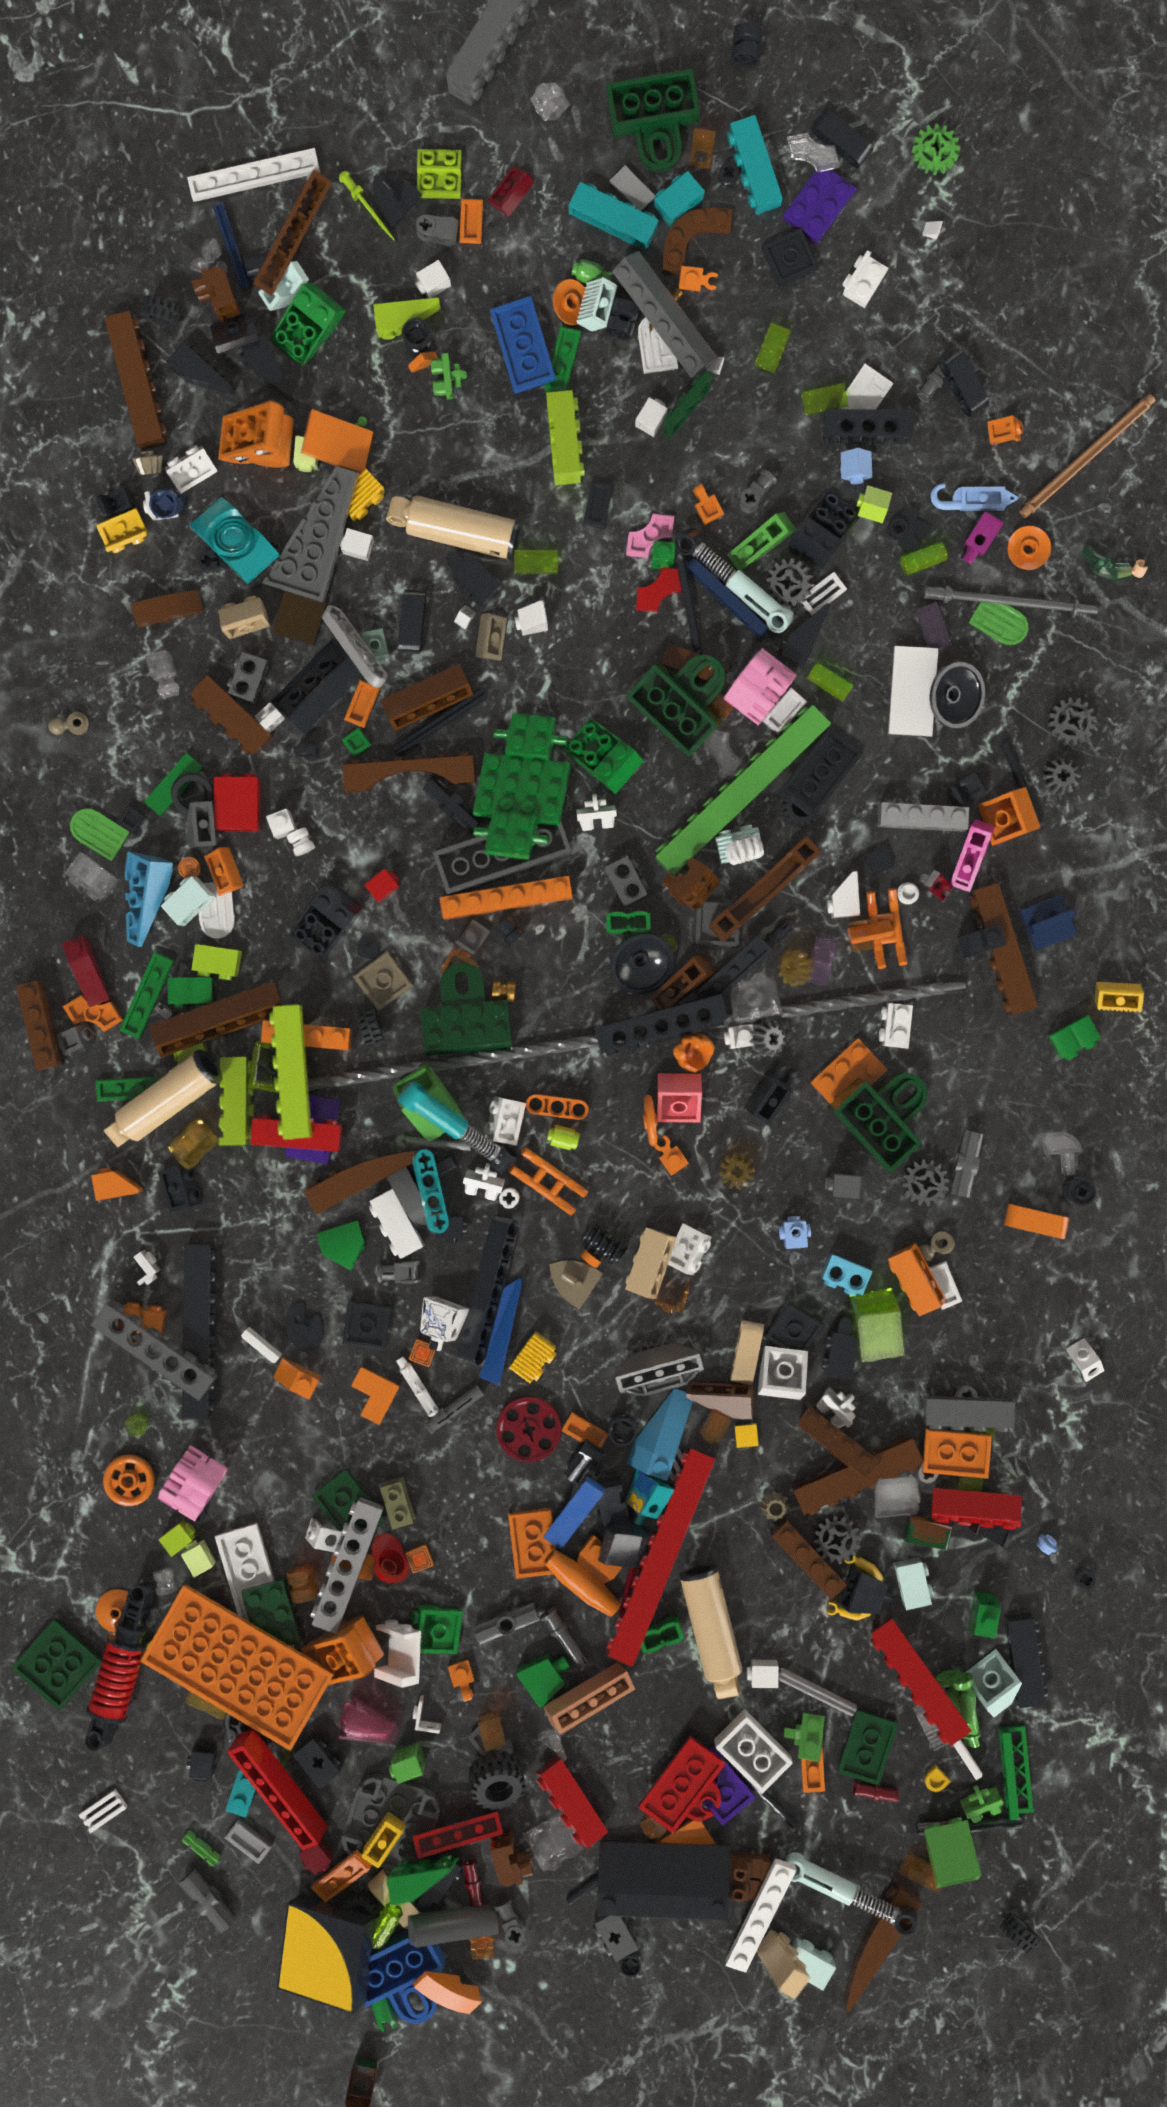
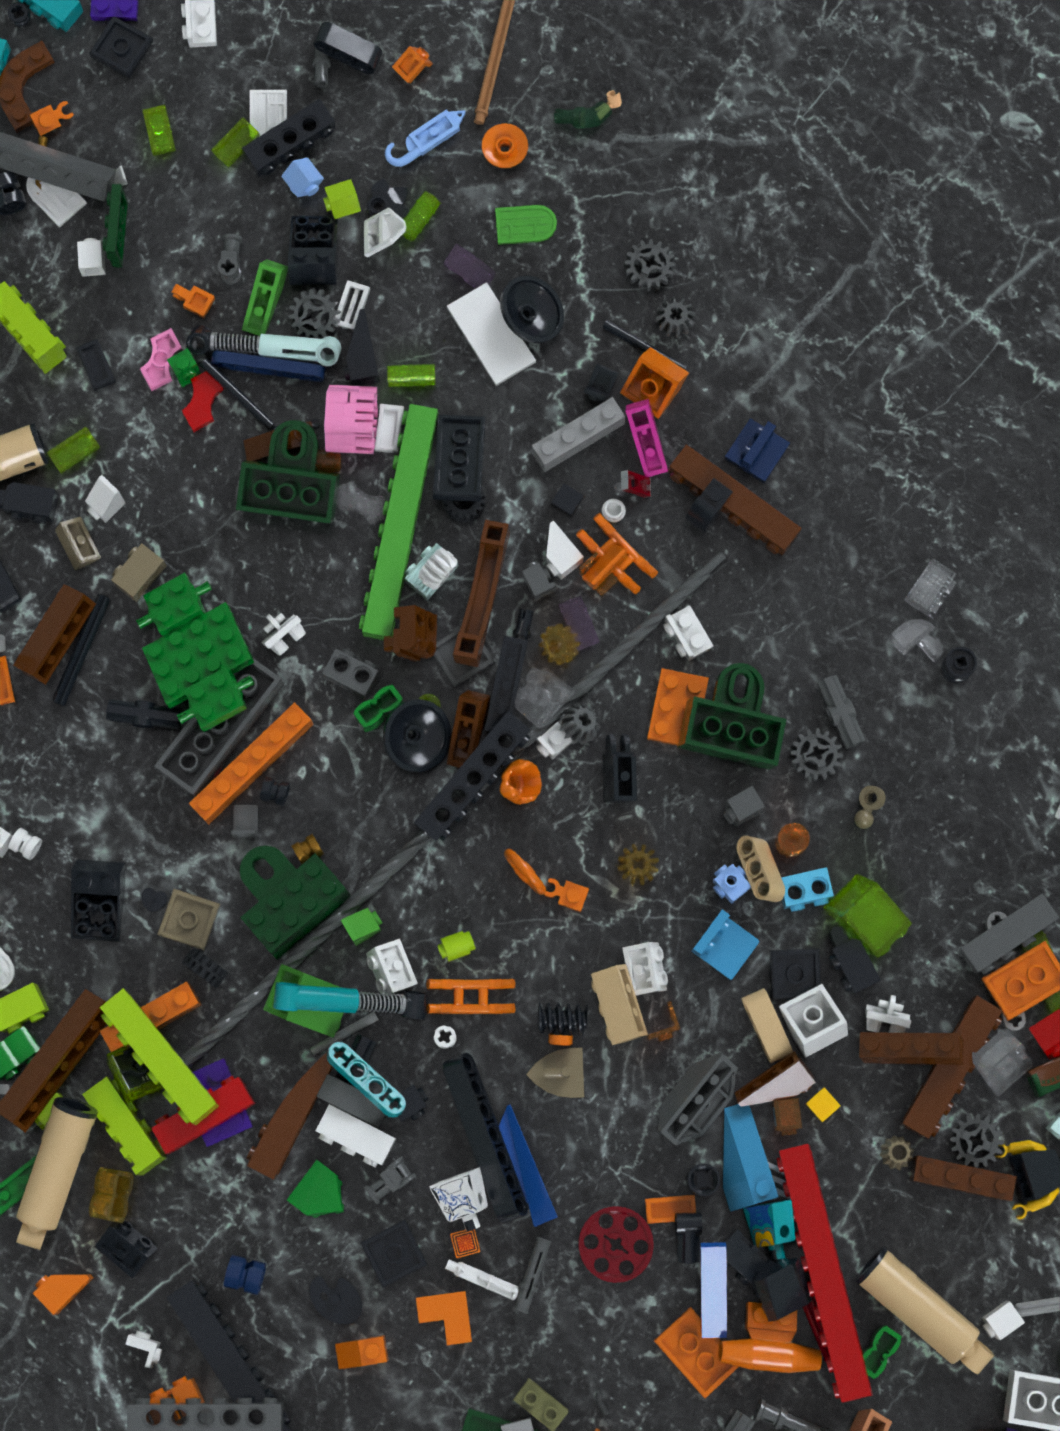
camera: 30 degrees left, 10 degrees down
(250, 1266) = (245, 1275): none -> dark blue wheel
(261, 1345) = (306, 1344): white tile -> none
(356, 742) = (16, 720): green tile -> none
(364, 776) = (45, 743): reddish brown arch -> none
(383, 885) = (128, 830): red brick -> none
(462, 955) = (246, 844): clear orange bracket -> none
(465, 616) = (41, 541): white piece -> none
(483, 1179) = (420, 1035): white hips -> none
(505, 1076) = (362, 925): none -> bright green slope
(521, 692) = (138, 572): none -> dark tan brick
(532, 1357) = (571, 1172): yellow brick -> none
(546, 1109) = (437, 910): orange beam -> none
(603, 755) = (253, 576): green slope -> none
(679, 1097) = (537, 834): coral slope -> none
(758, 1274) = (725, 945): none -> dark azure bracket
(813, 907) = (538, 580): none -> dark grey brick
(825, 1247) = (760, 869): none -> tan beam
(861, 1233) = (792, 840): none -> clear orange wheel
(887, 552) = (382, 231): none -> white slope
(916, 1279) = (873, 847): orange brick -> none
(945, 1280) = (901, 837): white tile -> none
(947, 594) = (462, 231): dark grey bar -> none
(986, 530) = (455, 157): magenta torso -> none
(1036, 1221) = (941, 719): orange beam -> none
(1074, 1037) = (853, 533): green brick -> none
(1100, 1118) = (930, 587): none -> clear brick
(1119, 996) = (866, 469): yellow brick -> none

